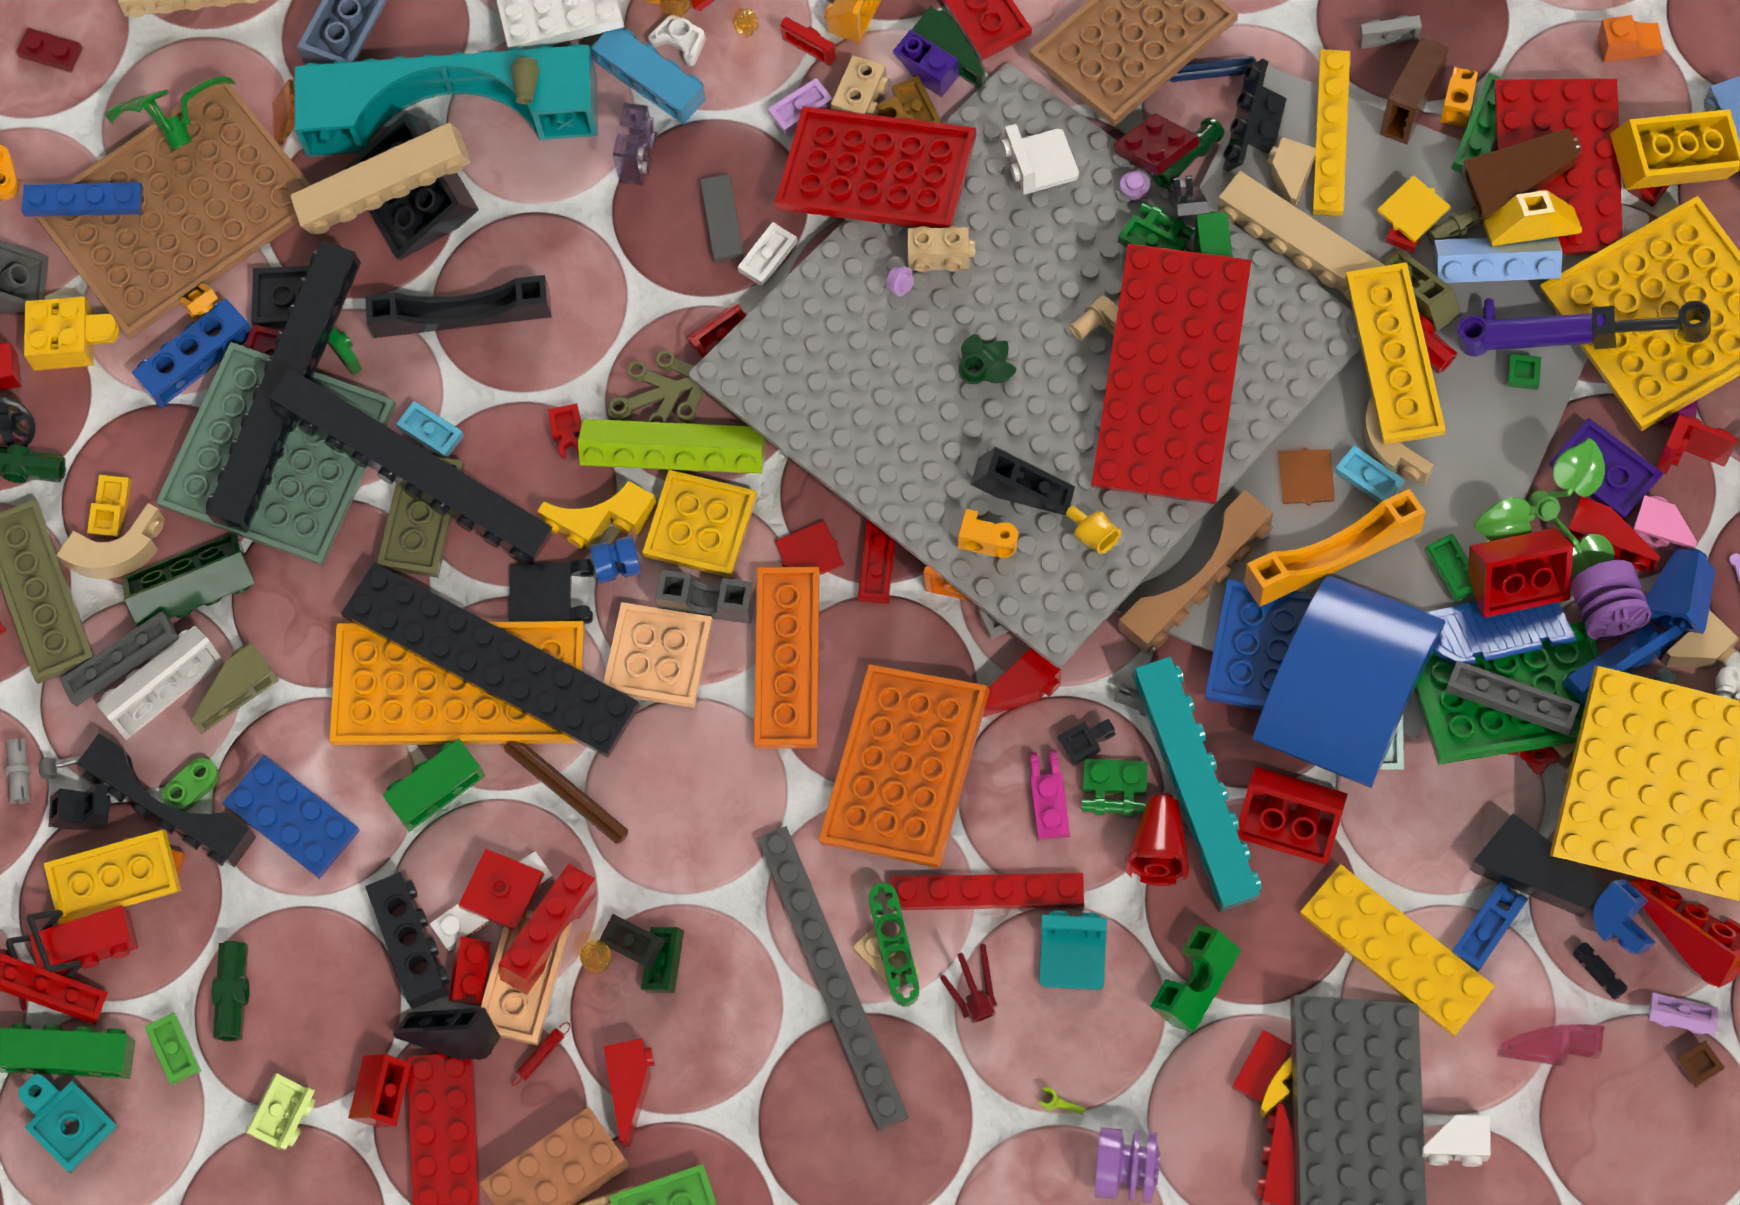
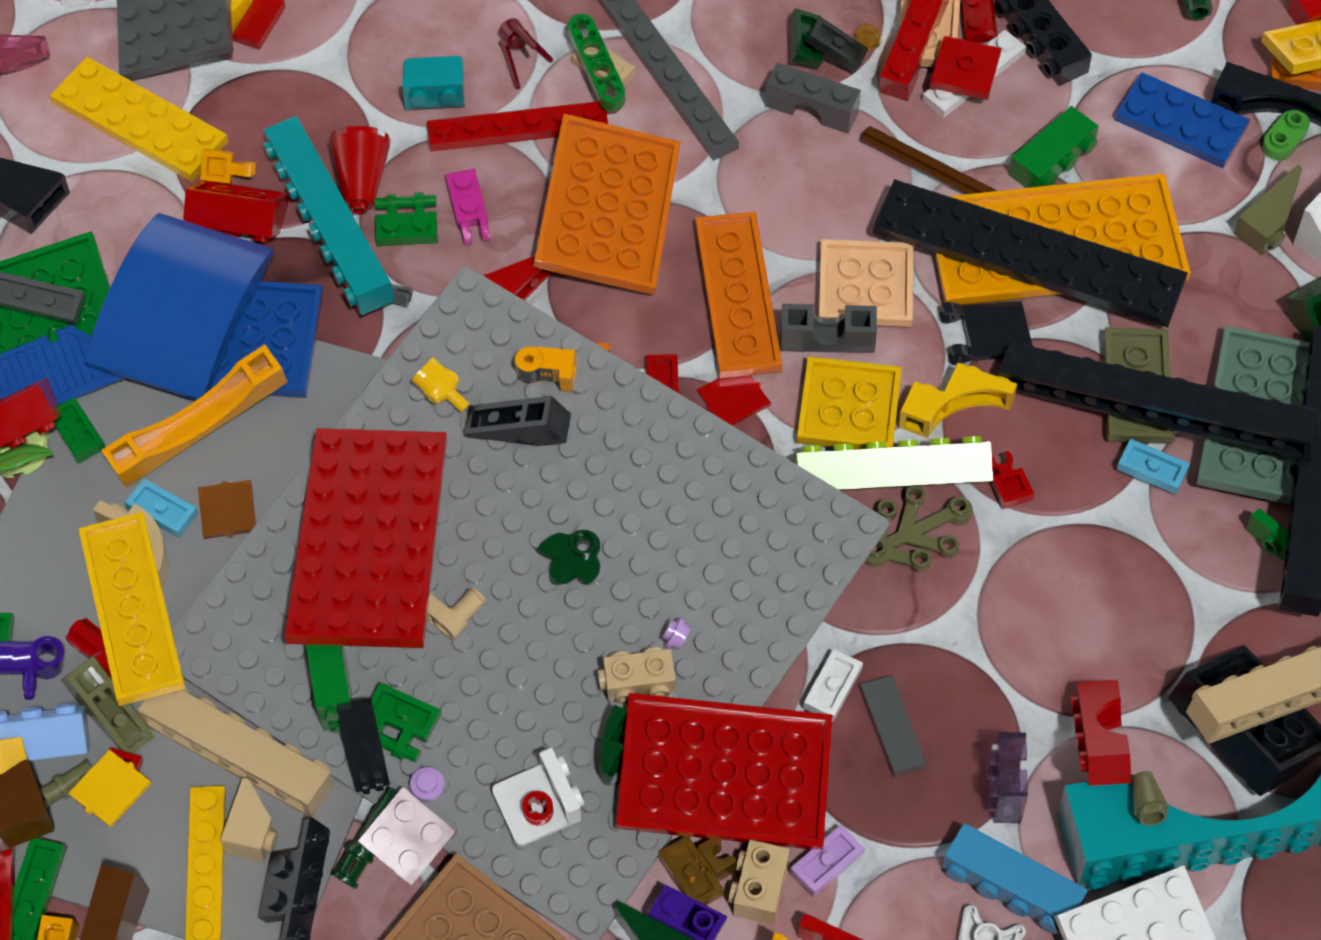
camera: 165 degrees right, 10 degrees down
(407, 314) = (1106, 597): black arch -> none
(550, 122) = (1101, 752): none -> red arch
(615, 559) = (927, 357): blue wheel -> none
(682, 882) = (834, 101): none -> dark grey arch
(714, 330) = (871, 603): red slope -> none
(971, 193) = (611, 750): none -> dark green slope
(1043, 140) = (539, 798): none -> red bush
(1082, 742) = (438, 249): black plate -> none
(1154, 616) = (293, 440): medium nougat arch -> none
(1211, 960) = (309, 79): green arch -> none
(1304, 867) = (220, 166): none -> light orange plate
(1489, 927) = (54, 137): blue plate -> none

